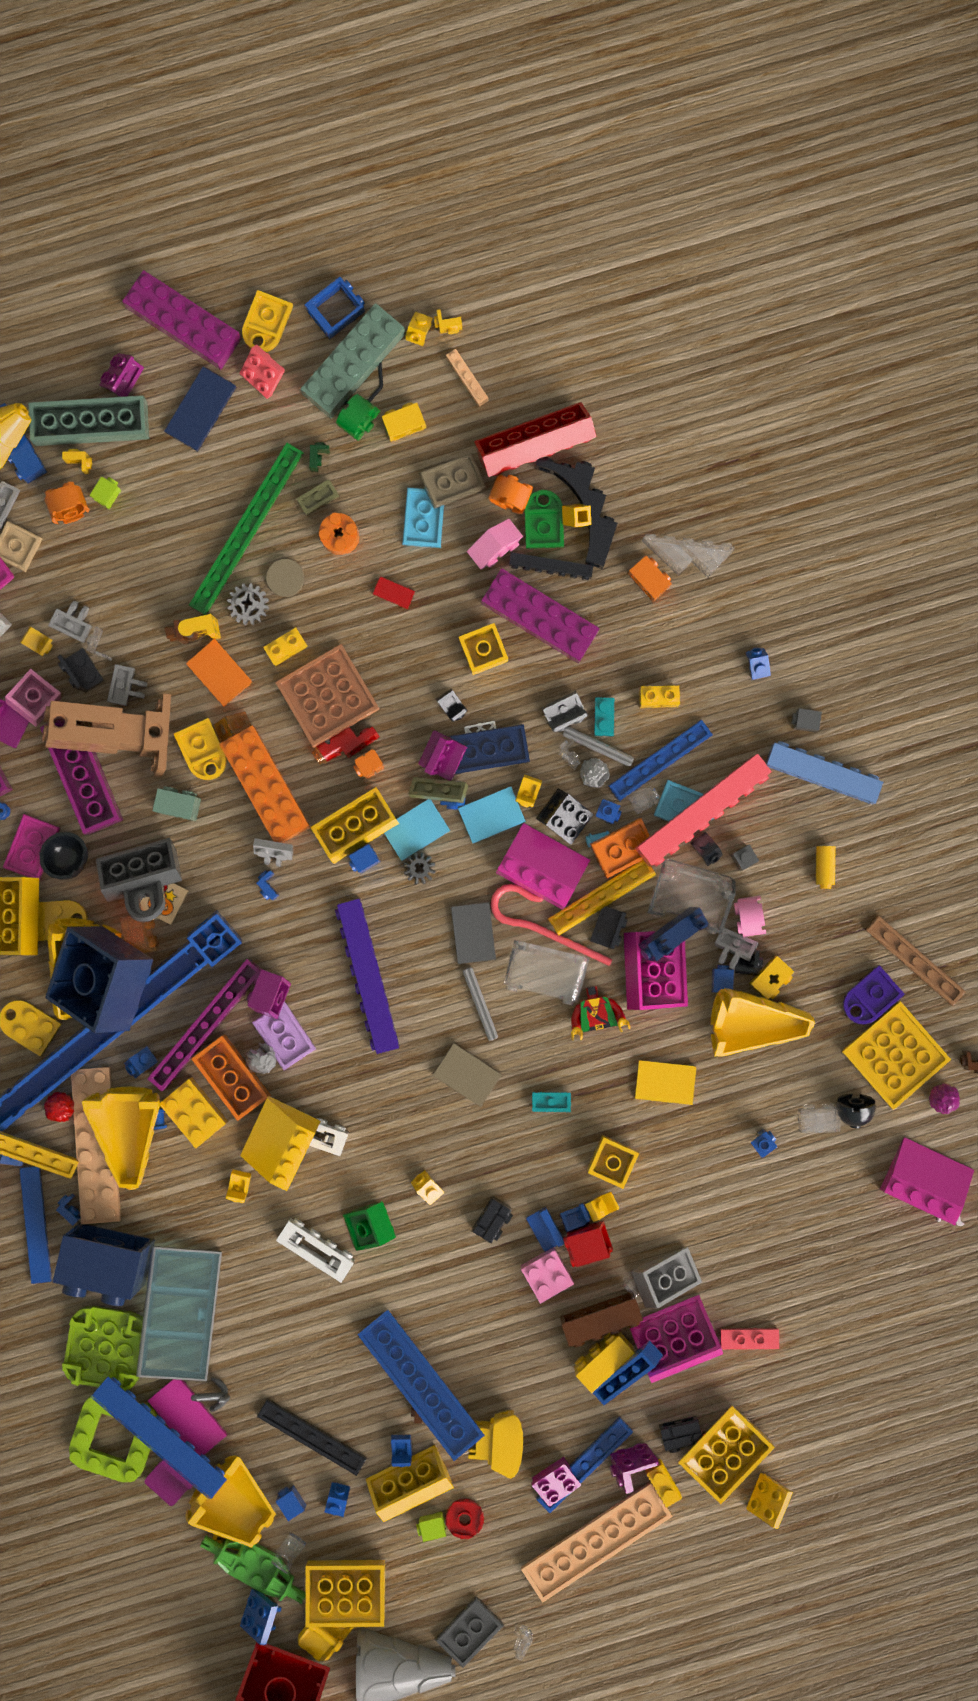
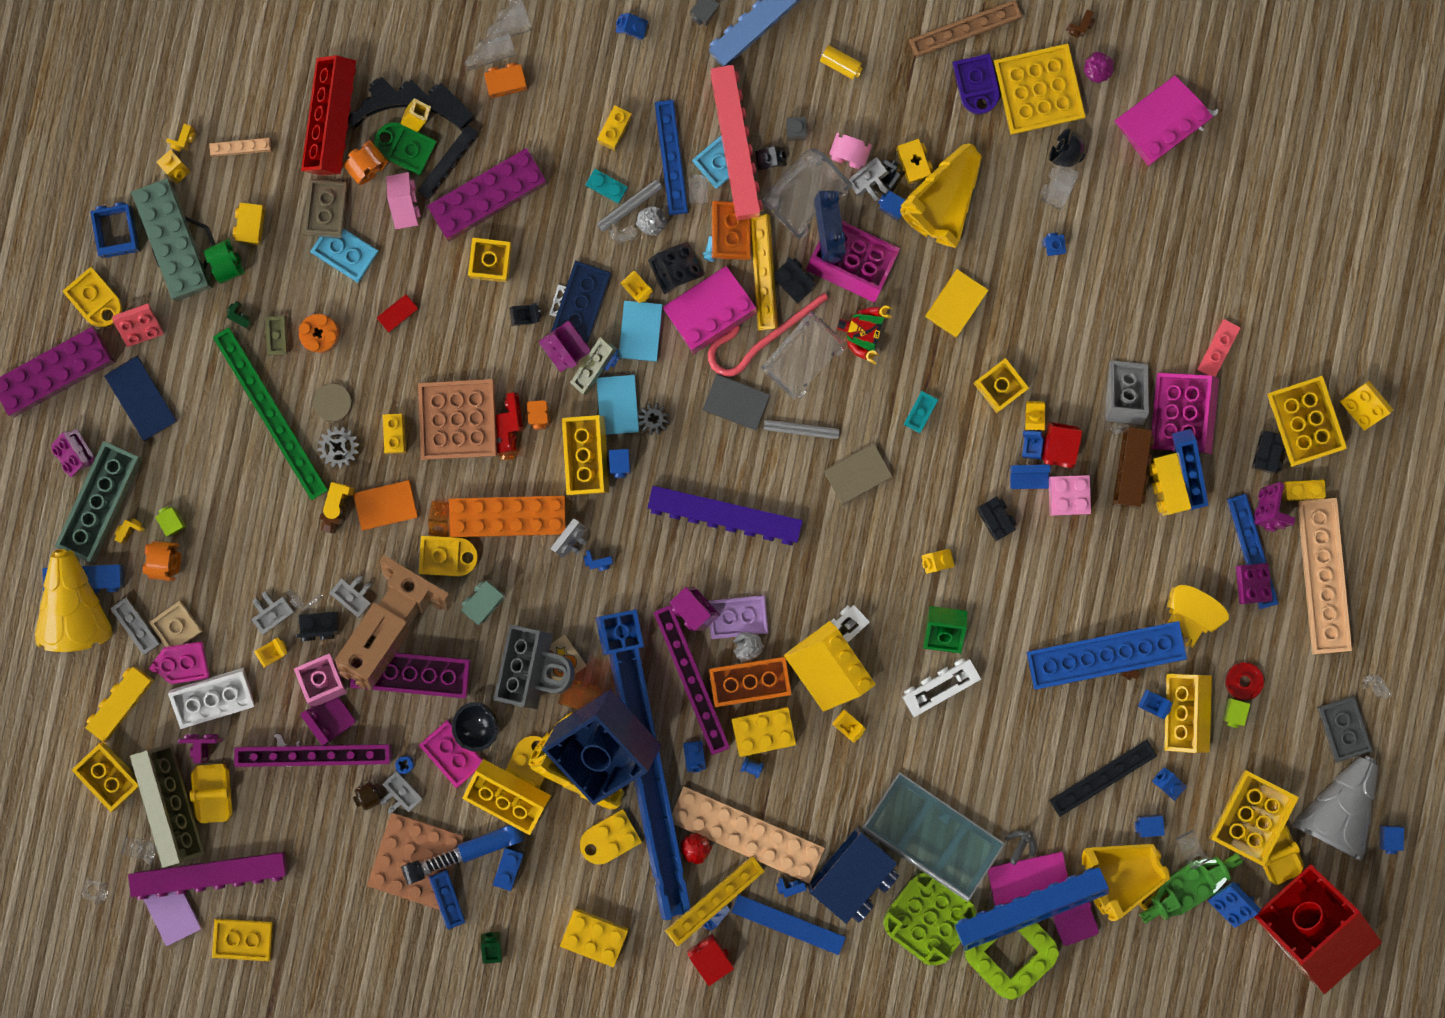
camera: 65 degrees left, 0 degrees up
(124, 1129) = (746, 798): yellow cone -> none
(564, 712) = (584, 218): bracket -> none
(608, 811) = (692, 226): blue bracket -> none

